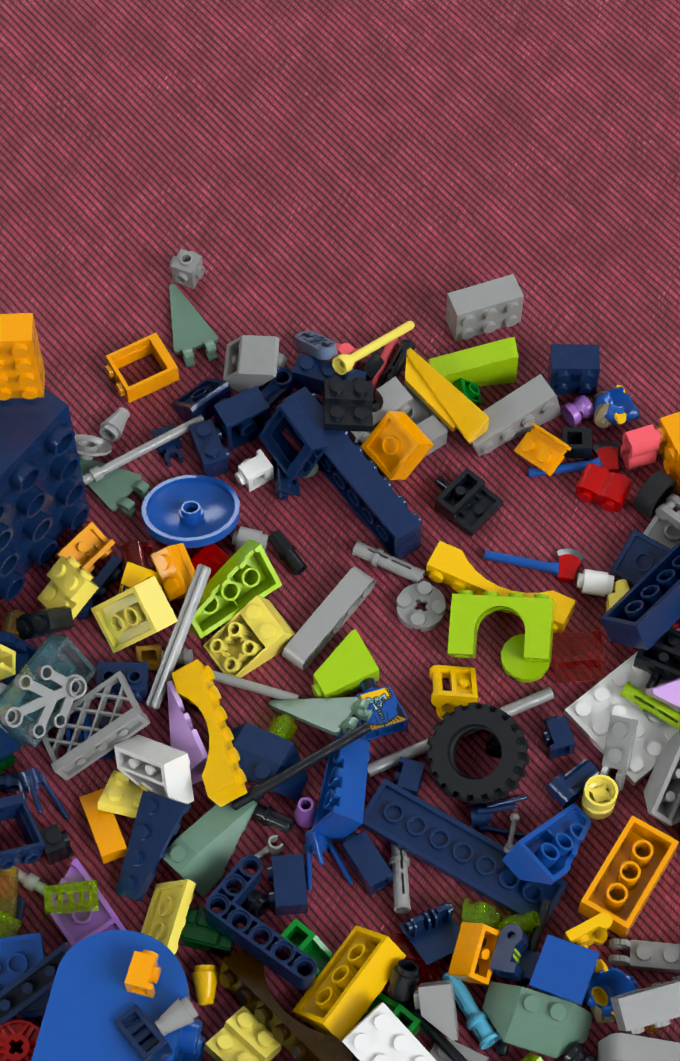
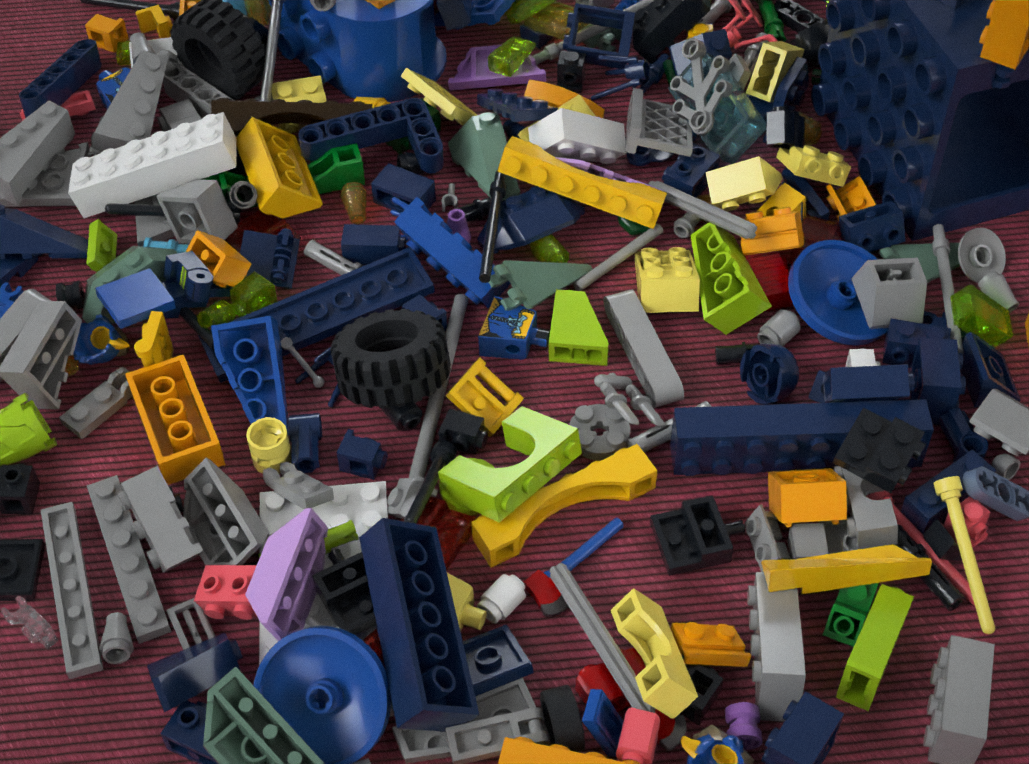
camera: 125 degrees right, 10 degrees down
(111, 521) = (874, 227): none -> dark blue brick
(158, 417) = (981, 315): none -> clear neon green brick
(176, 476) = (891, 291): none -> light grey slope
(301, 520) = (769, 372): none -> dark blue cylinder
(324, 917) = (354, 200): none -> clear yellow cone
(398, 597) = (610, 382): none -> light grey piece
(442, 459) = (763, 532): none -> light grey hinge
(491, 685) = (464, 431): none -> black brick
(520, 684) = (441, 455): none -> black piece
(568, 681) = (403, 496): none -> light grey bracket
(588, 502) = (599, 636): none -> light grey axle
(595, 444) = (665, 678): none -> light yellow arch
(640, 469) = (603, 721): none -> blue tile

